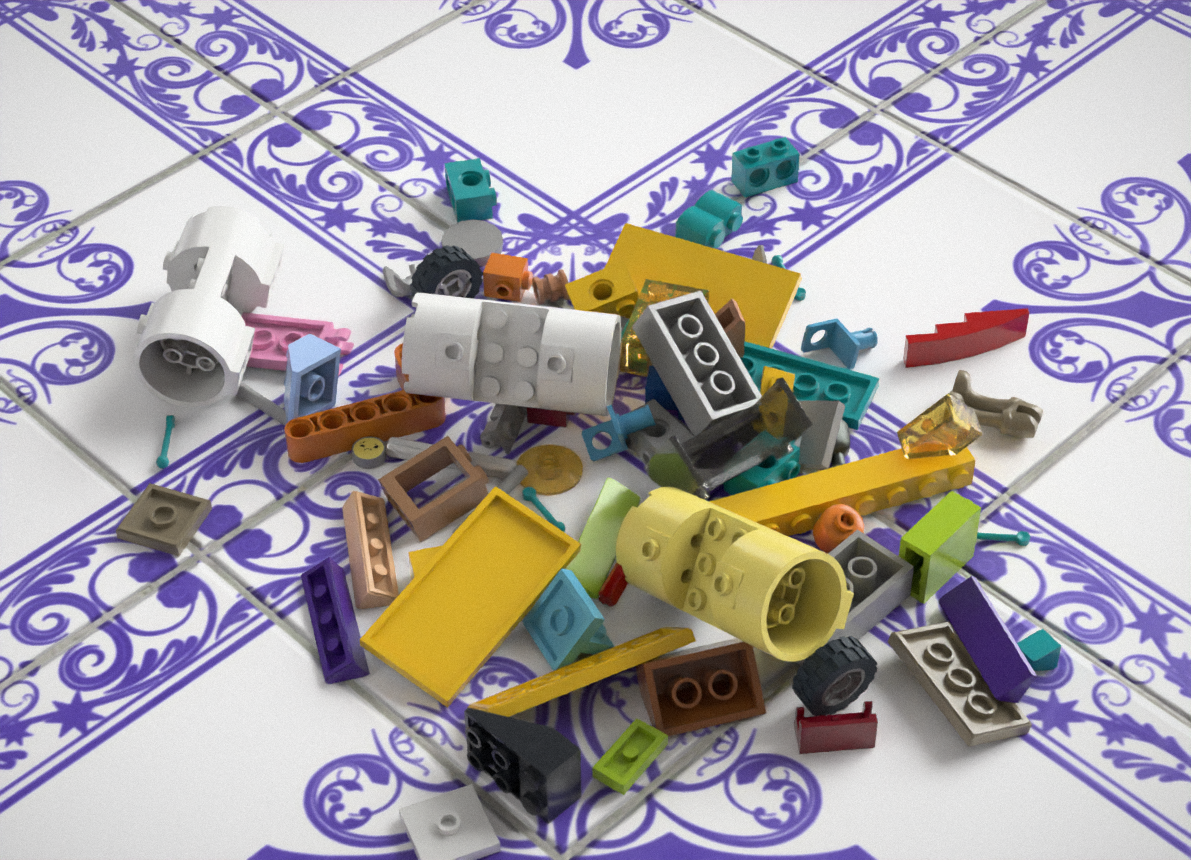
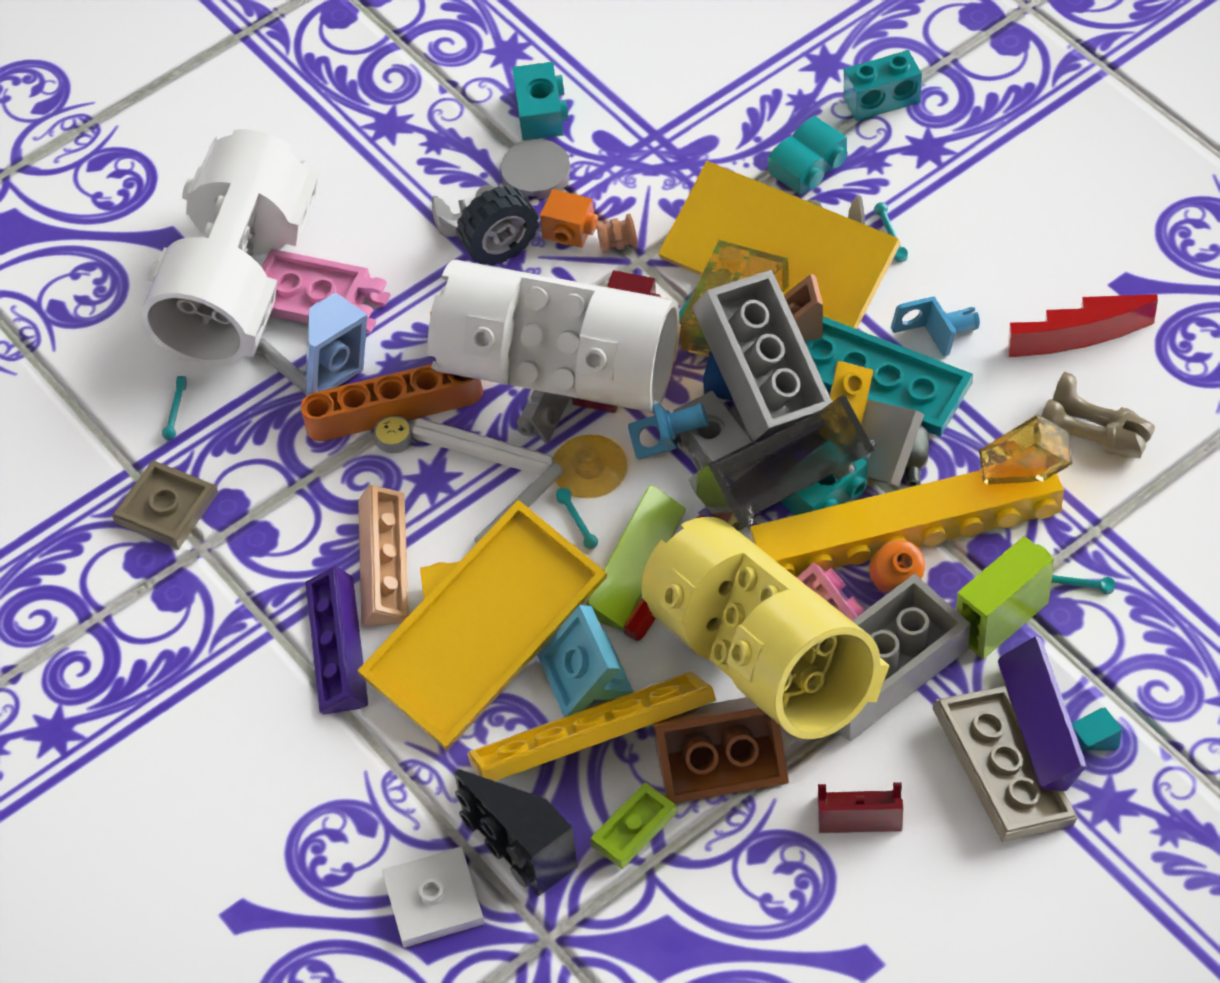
camera: 10 degrees right, 10 degrees up
(448, 506) = (470, 511): medium nougat window -> none
(610, 281) = (653, 246): yellow brick -> none
(834, 676) = (863, 751): black wheel -> none

